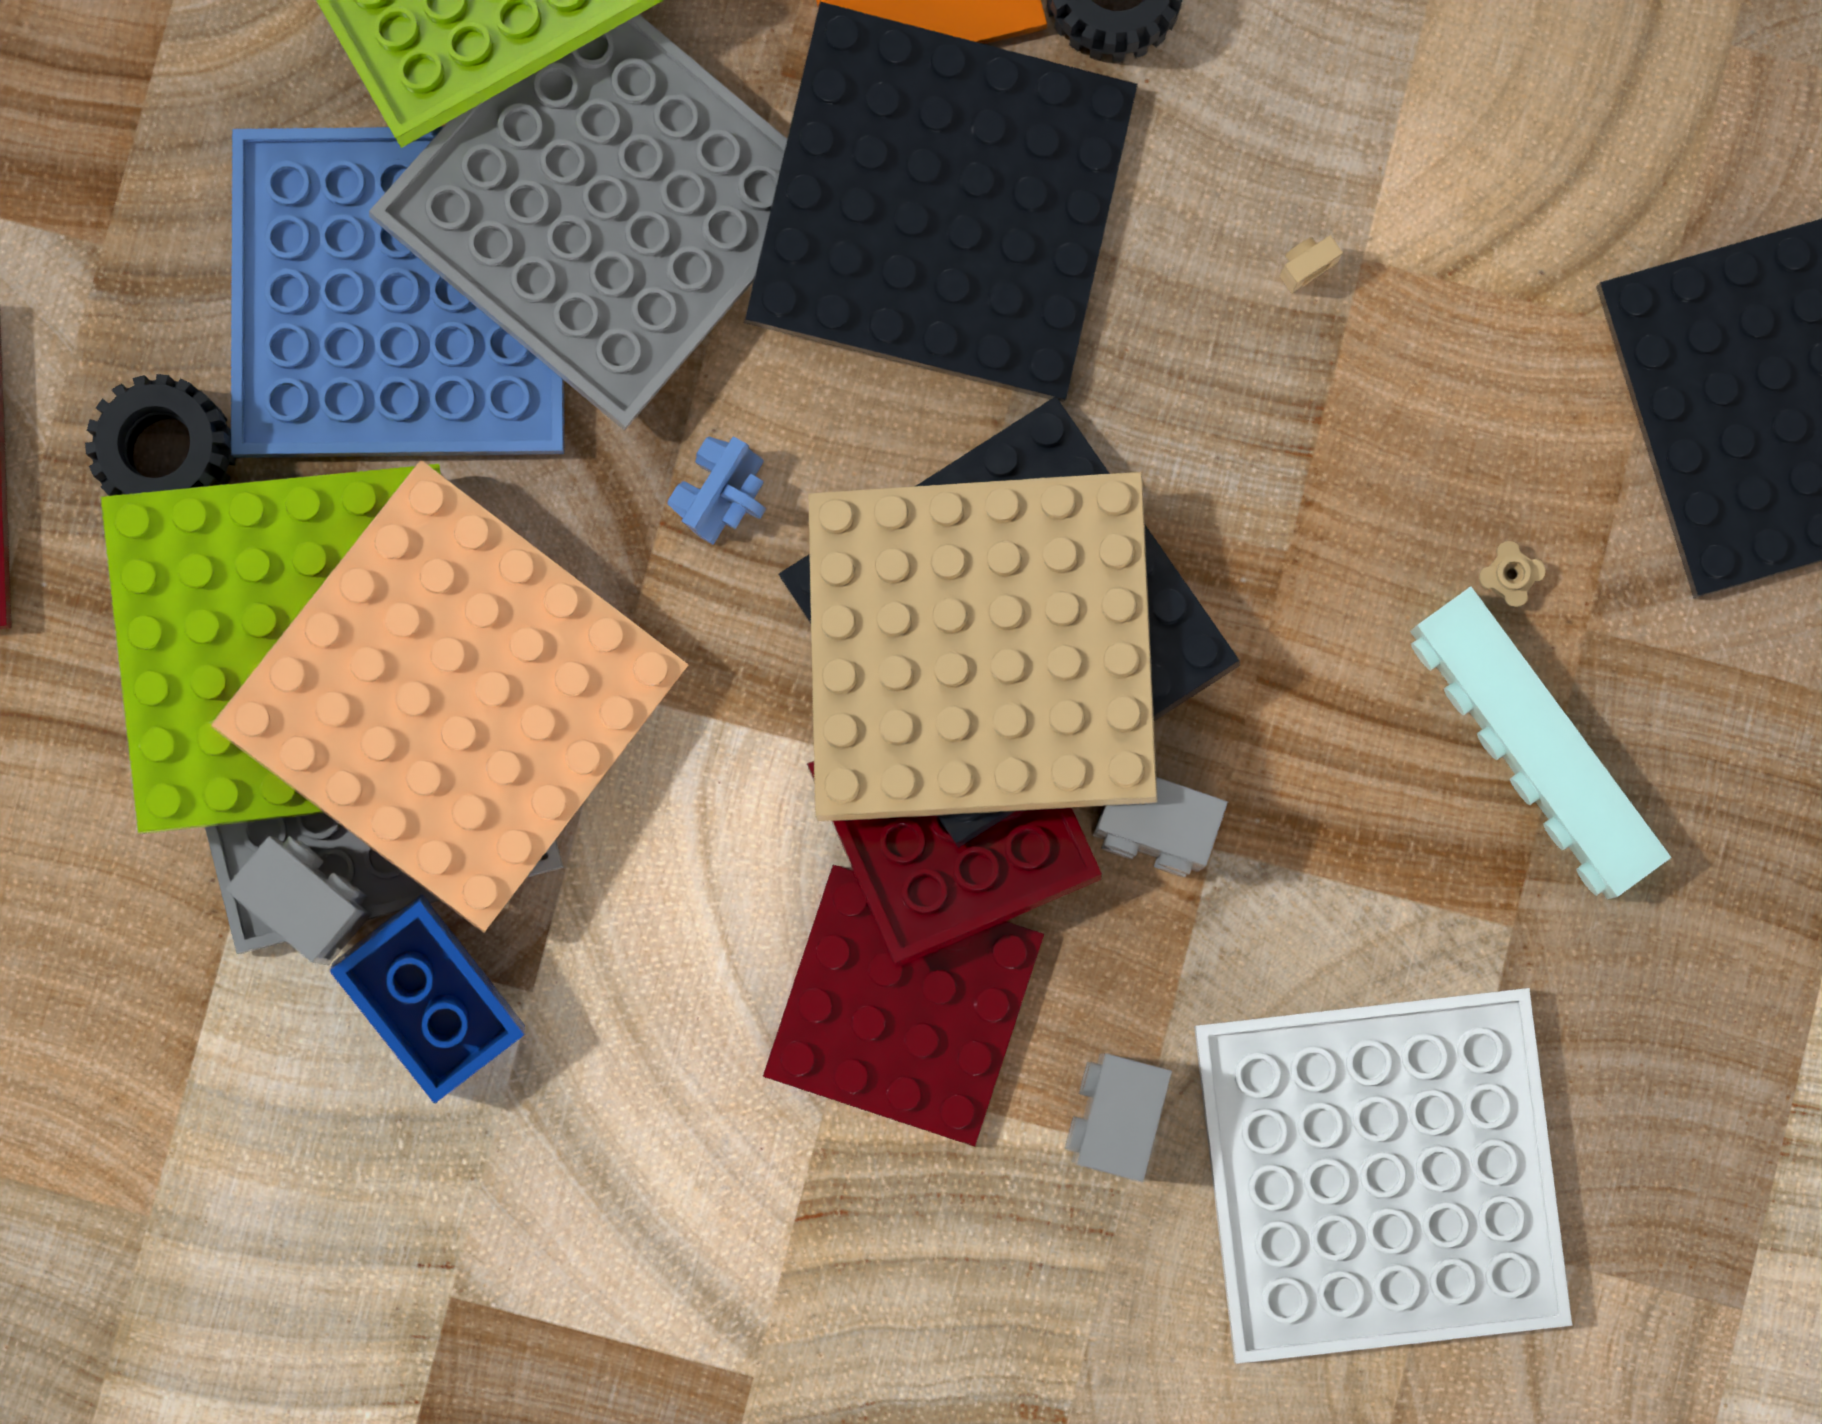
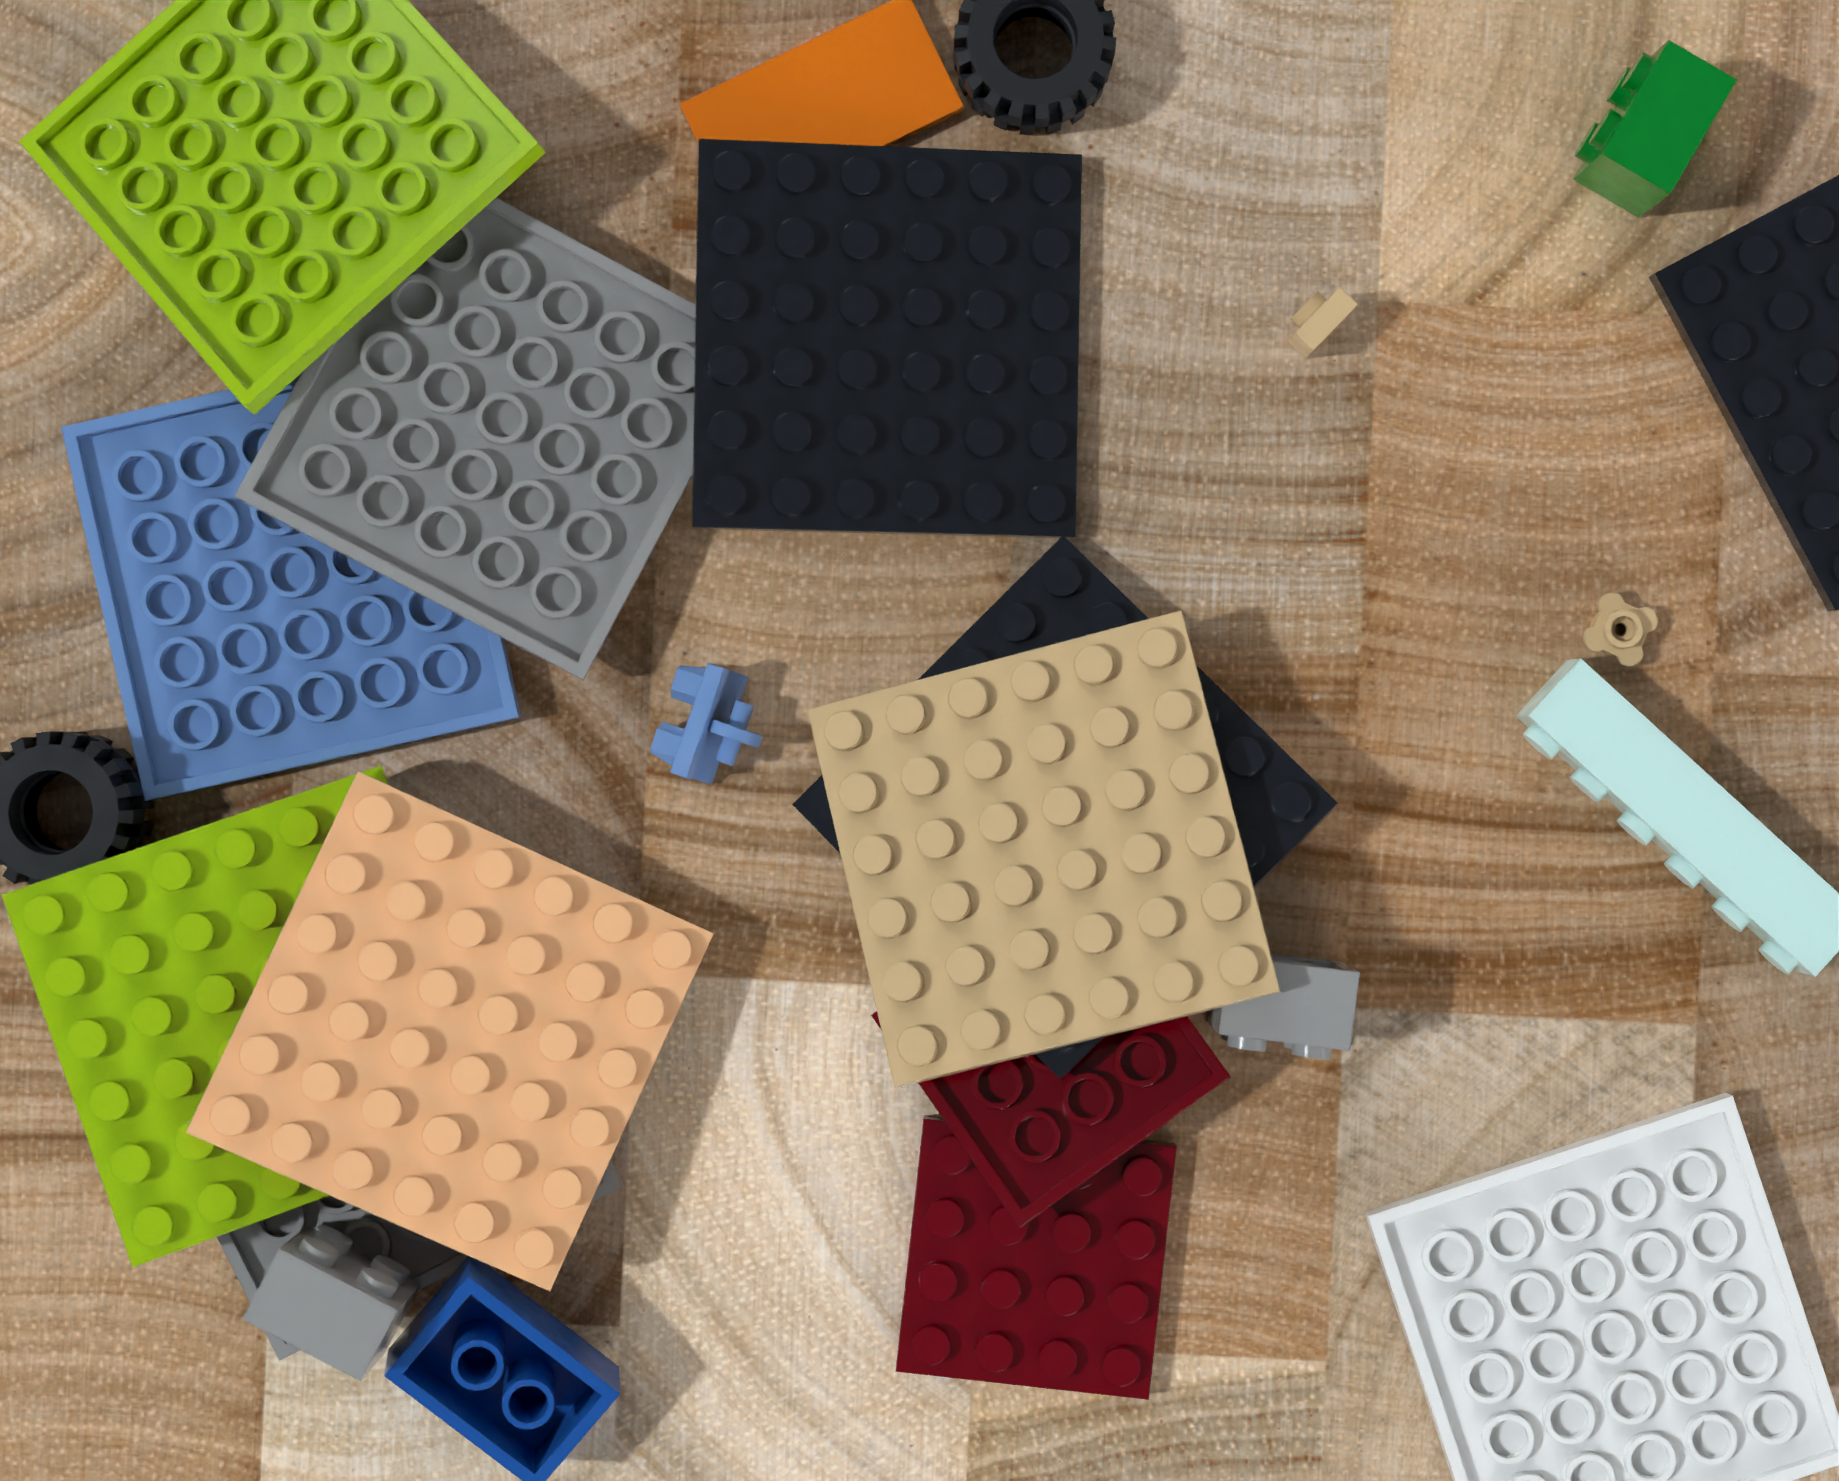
camera: 10 degrees left, 5 degrees up
(1118, 1116) = (1305, 1341): light grey brick -> none
(1625, 150) = (1654, 128): none -> green brick

